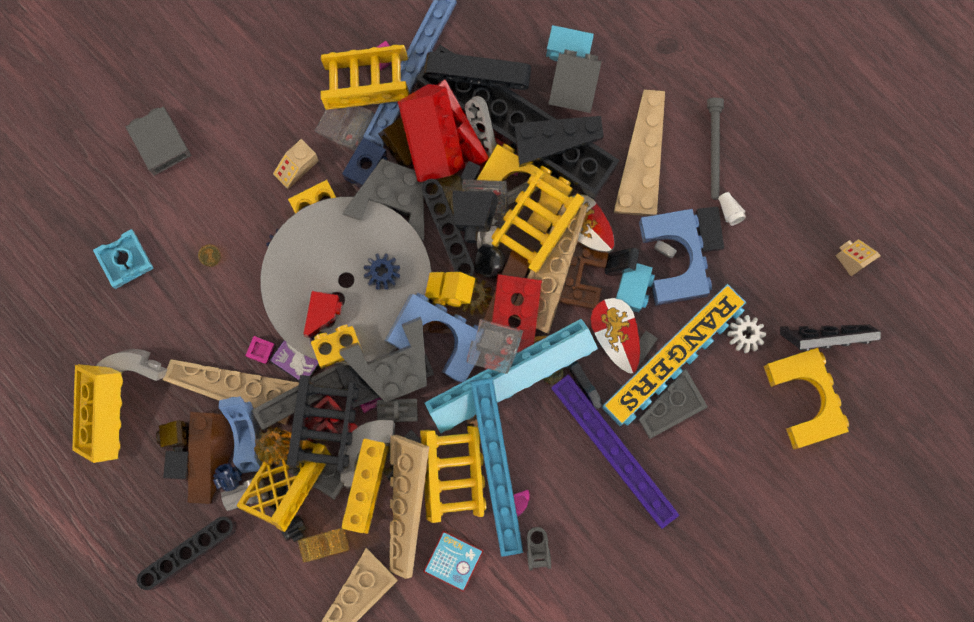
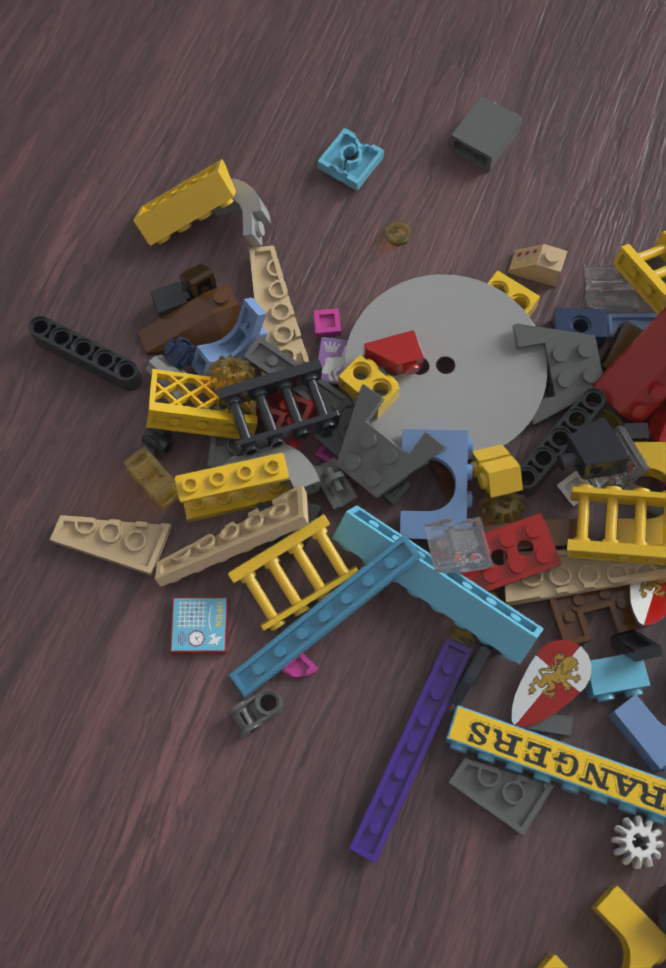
camera: 65 degrees right, 10 degrees down
(378, 265) = (467, 398): dark blue gear -> none
(489, 261) = (551, 502): black hair -> none

